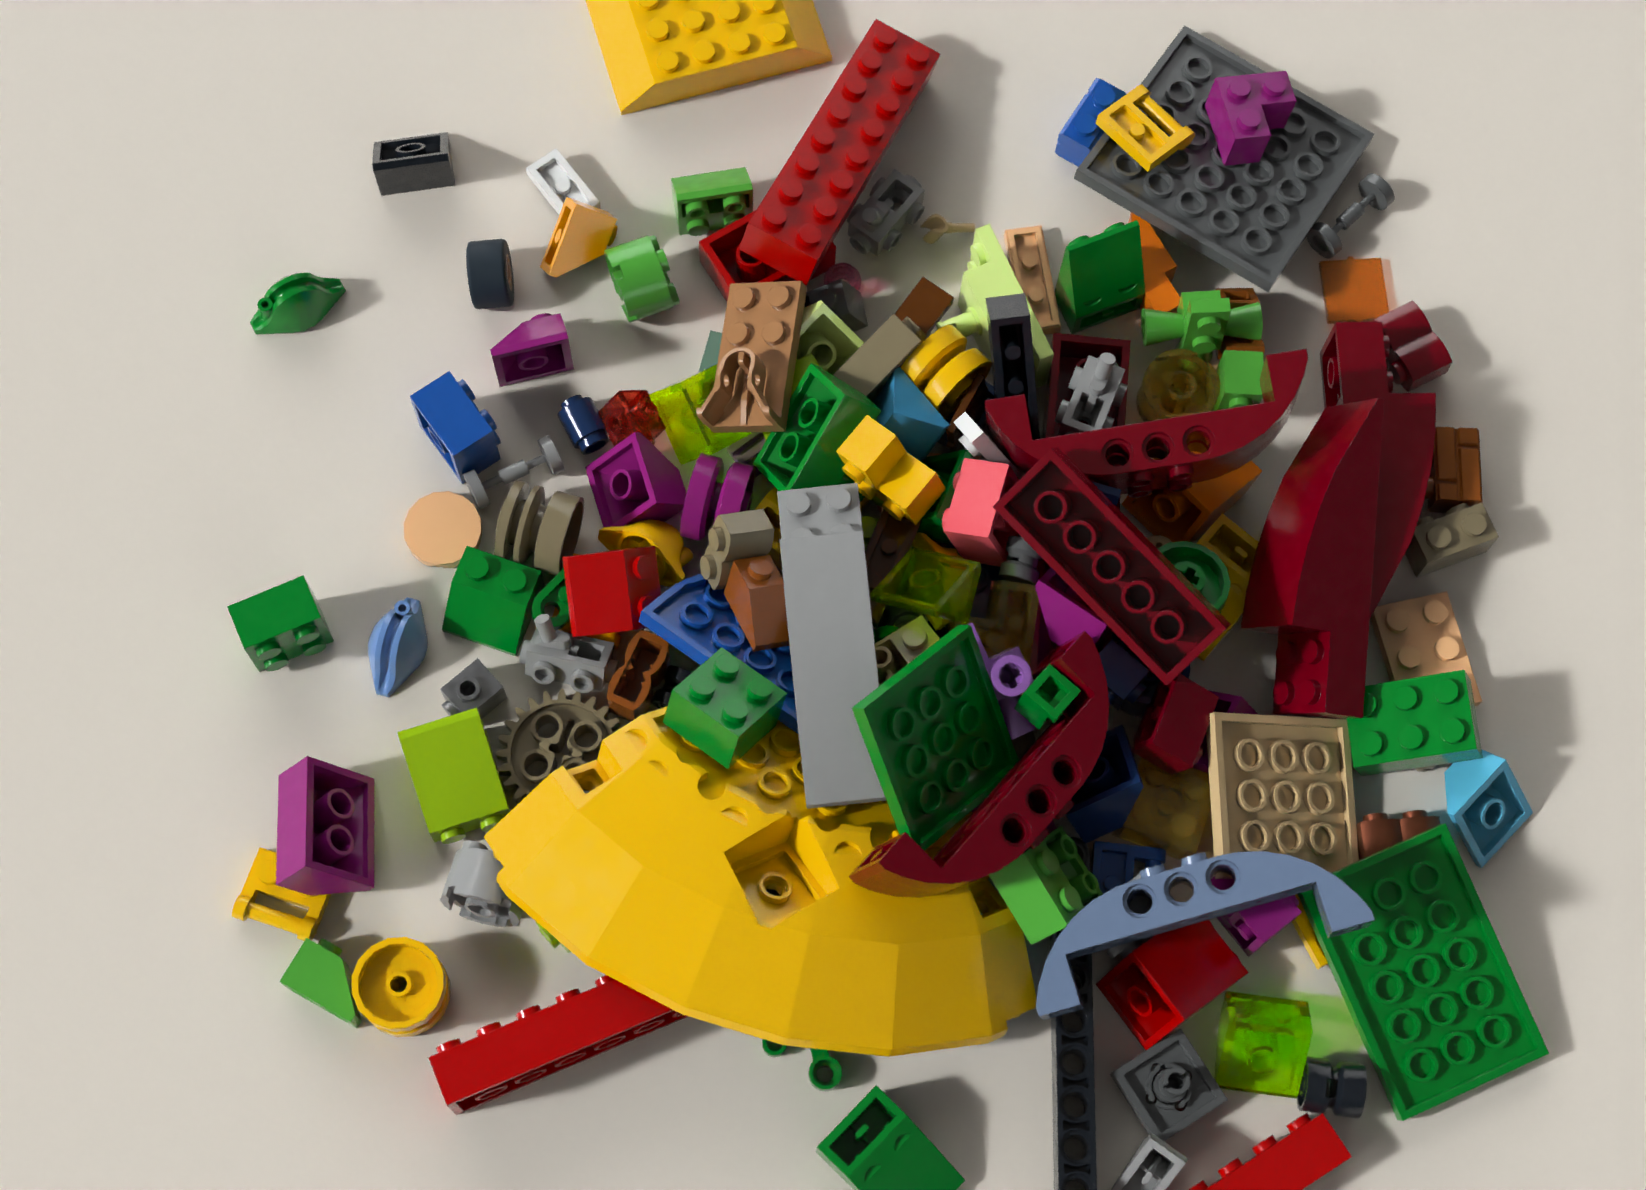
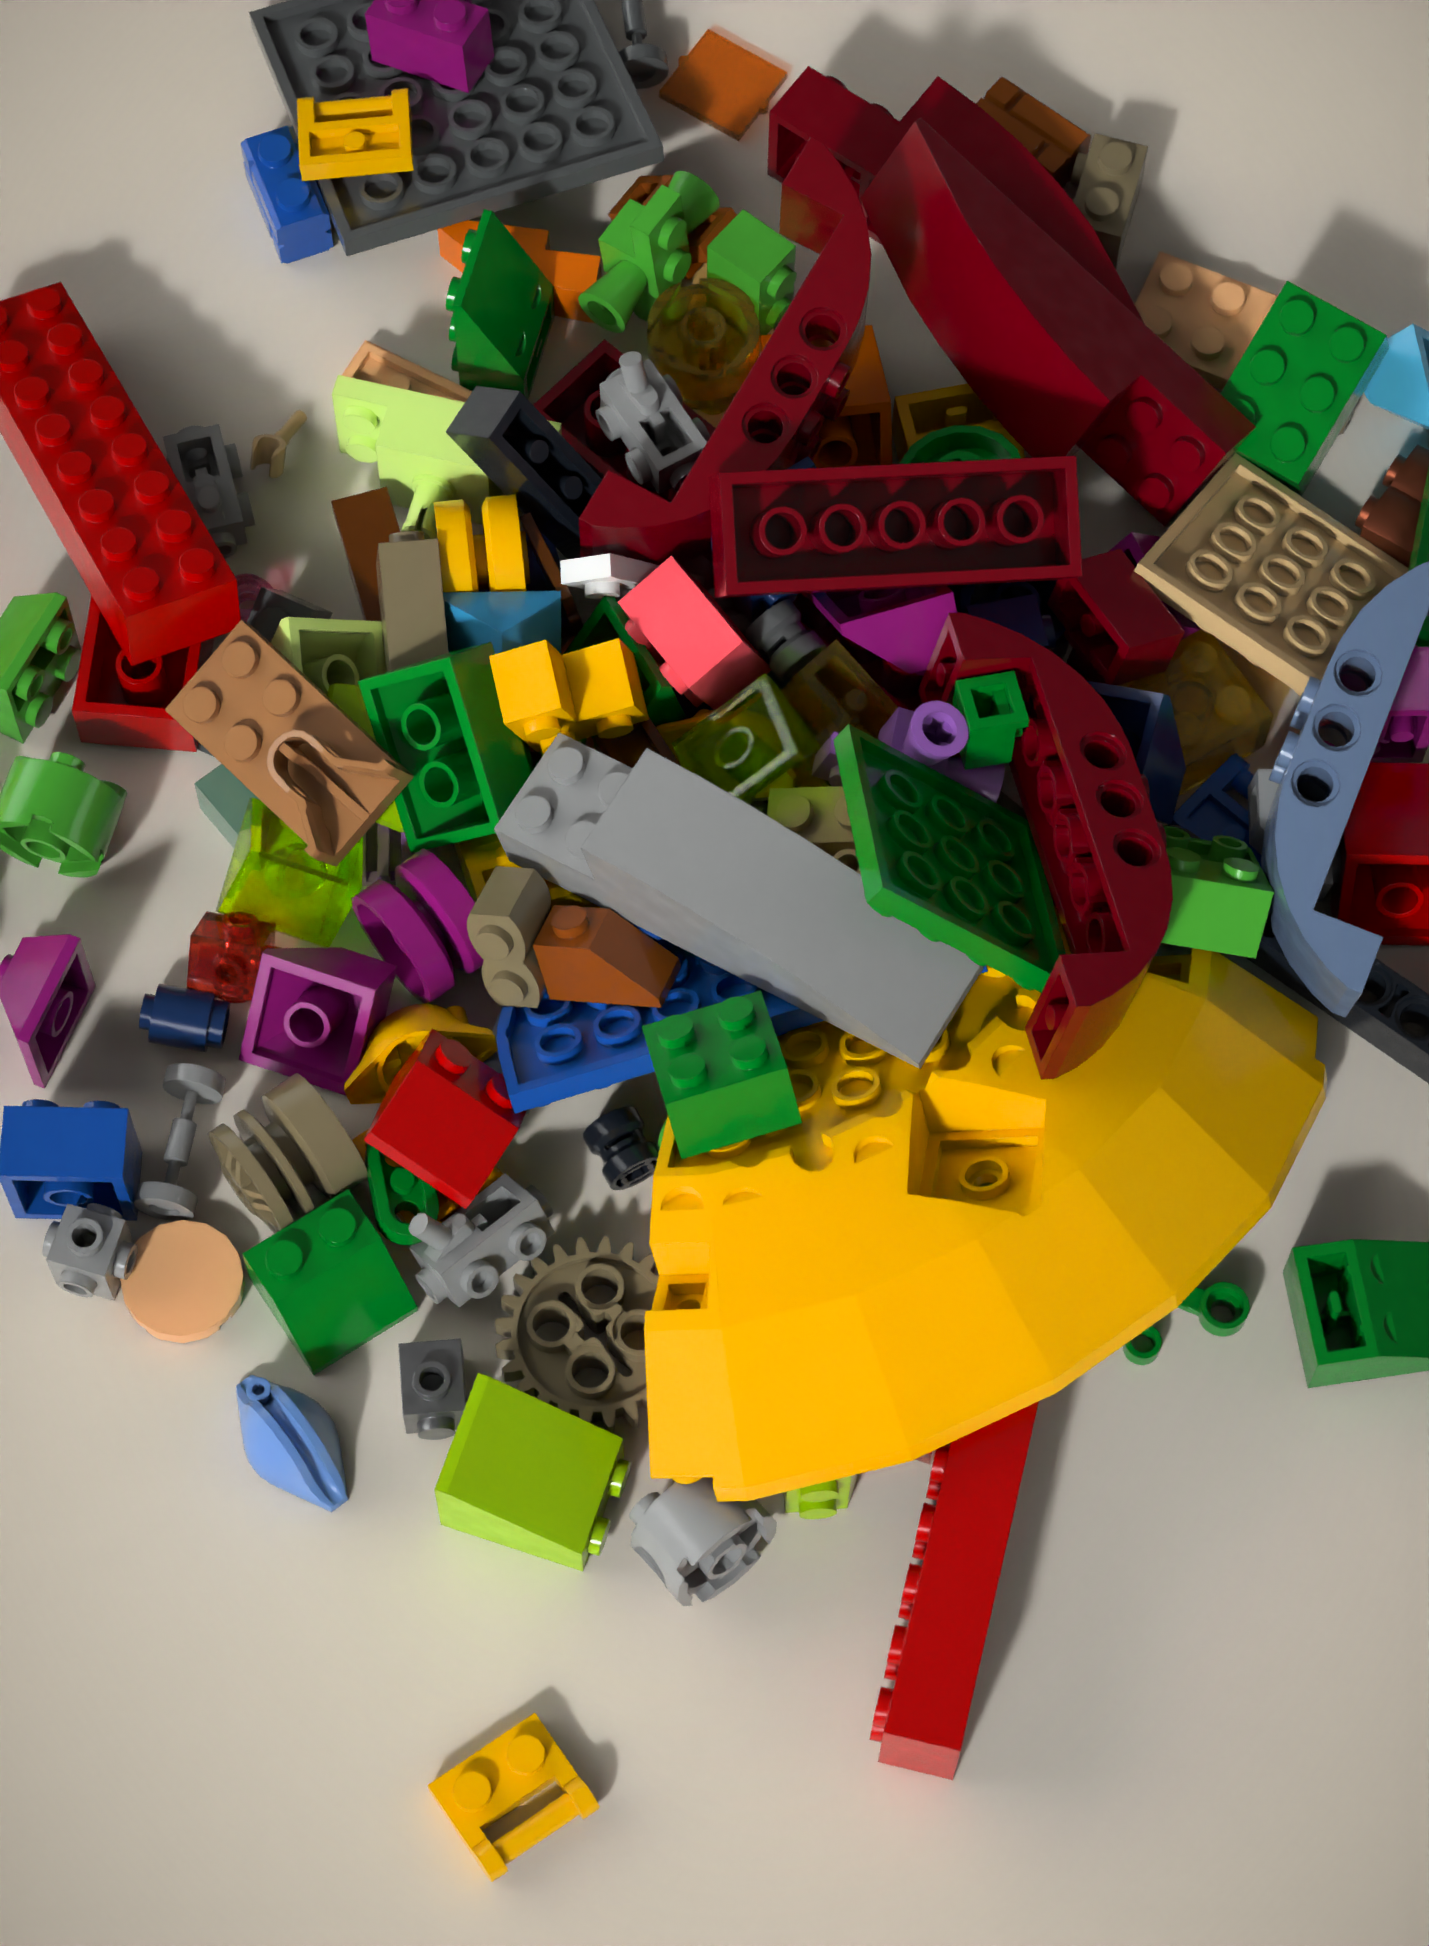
camera: 50 degrees left, 5 degrees down
(281, 624) = (161, 1551): green brick -> none
(323, 979) = (669, 1818): bright green slope -> none
(325, 829) = (473, 1681): magenta slope -> none
(379, 976) = (742, 1762): yellow wheel -> none
(420, 472) = (91, 1268): none -> light grey brick
(633, 683) = (565, 1167): dark orange brick -> none
(1415, 349) = (861, 62): dark red brick -> none

